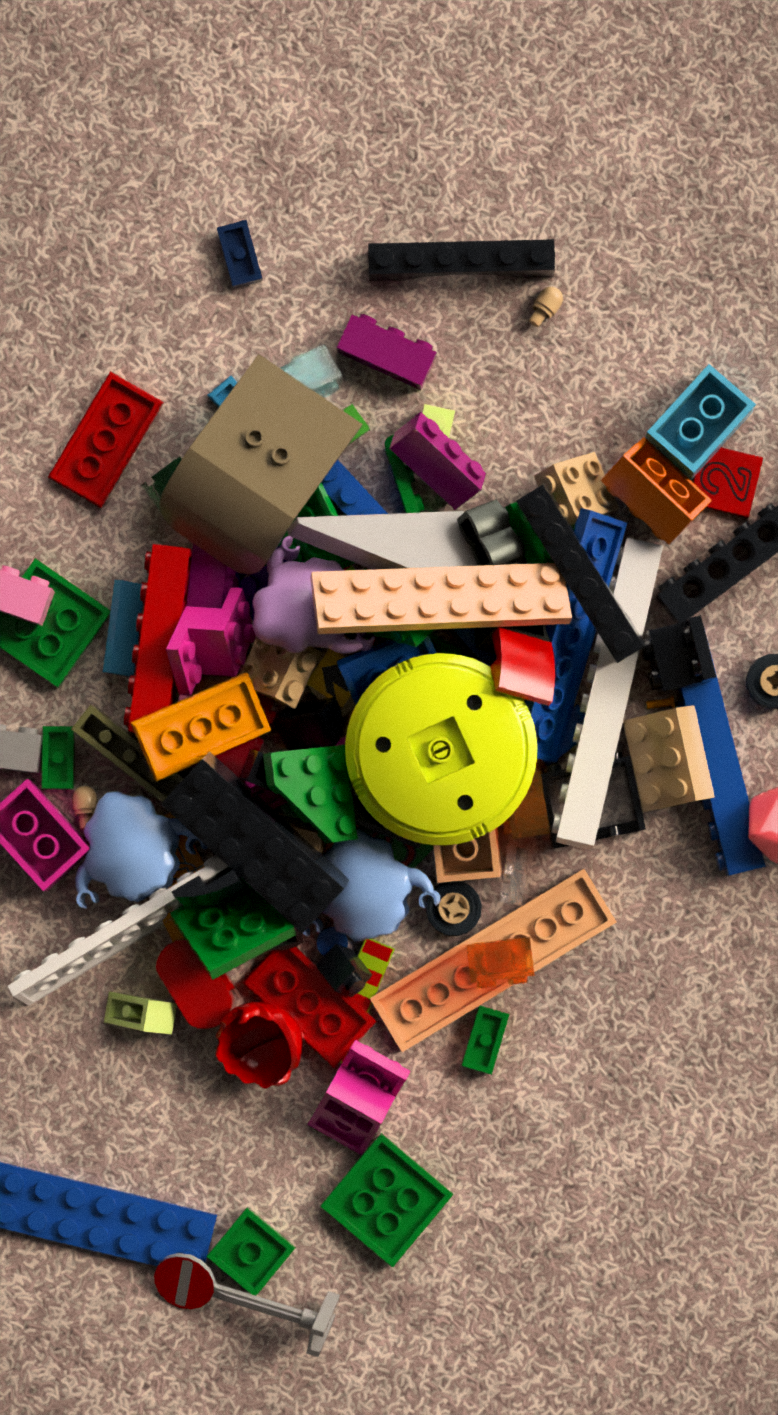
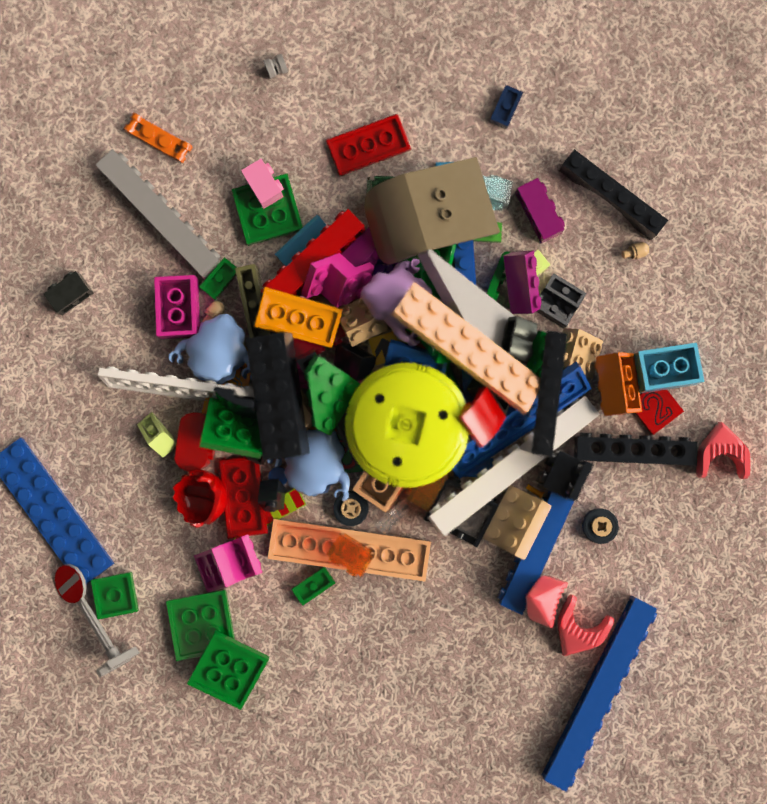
camera: 40 degrees right, 0 degrees up
(465, 1225) = (228, 670): none -> green plate
(502, 443) = (560, 300): none -> black slope

